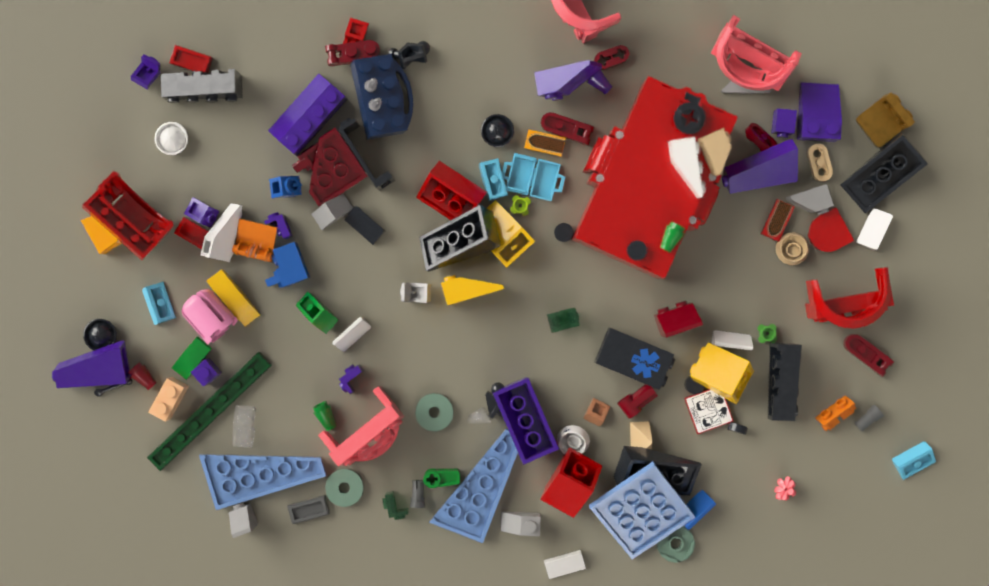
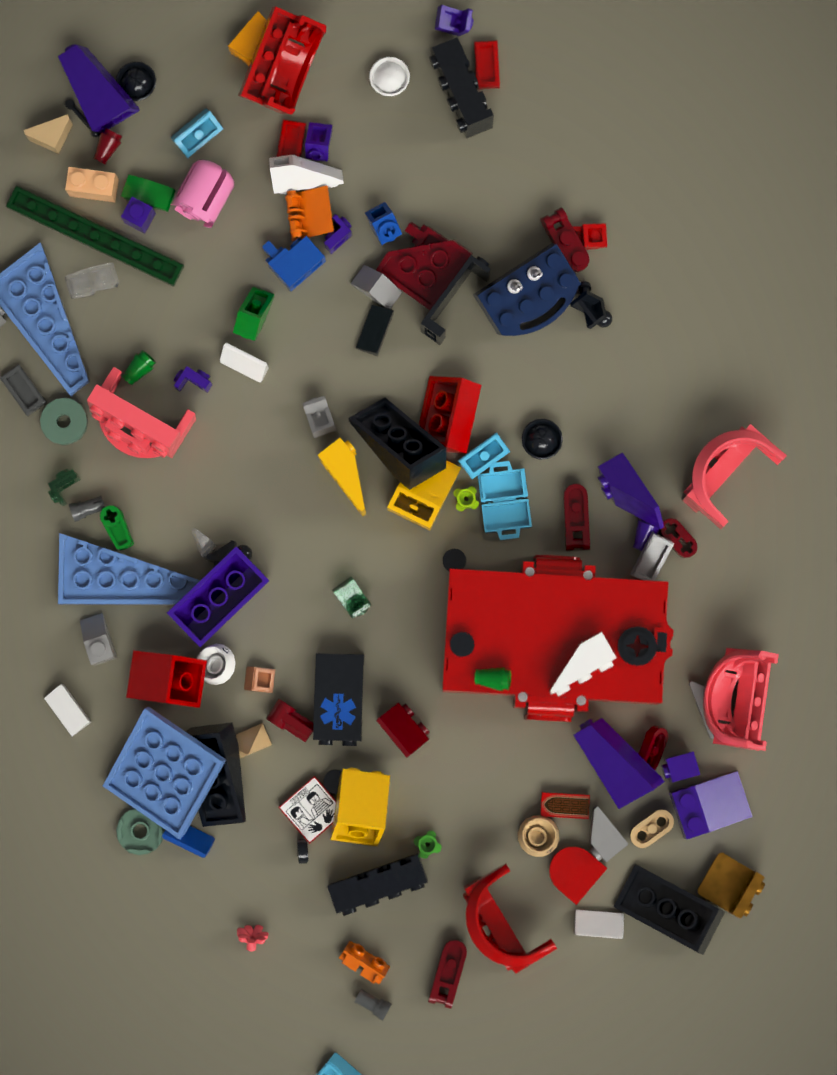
camera: 75 degrees right, 5 degrees down
(116, 415) = (51, 133): none -> tan slope
(233, 297) = (235, 213): yellow slope -> none
(307, 114) = (475, 217): dark purple slope -> none
(434, 423) = (179, 481): sand green tile -> none
(544, 143) = (549, 499): tile -> none
(619, 82) = (652, 557): none -> light grey tile
(715, 150) = (613, 689): tan slope -> none
(732, 340) = (404, 805): white slope -> none

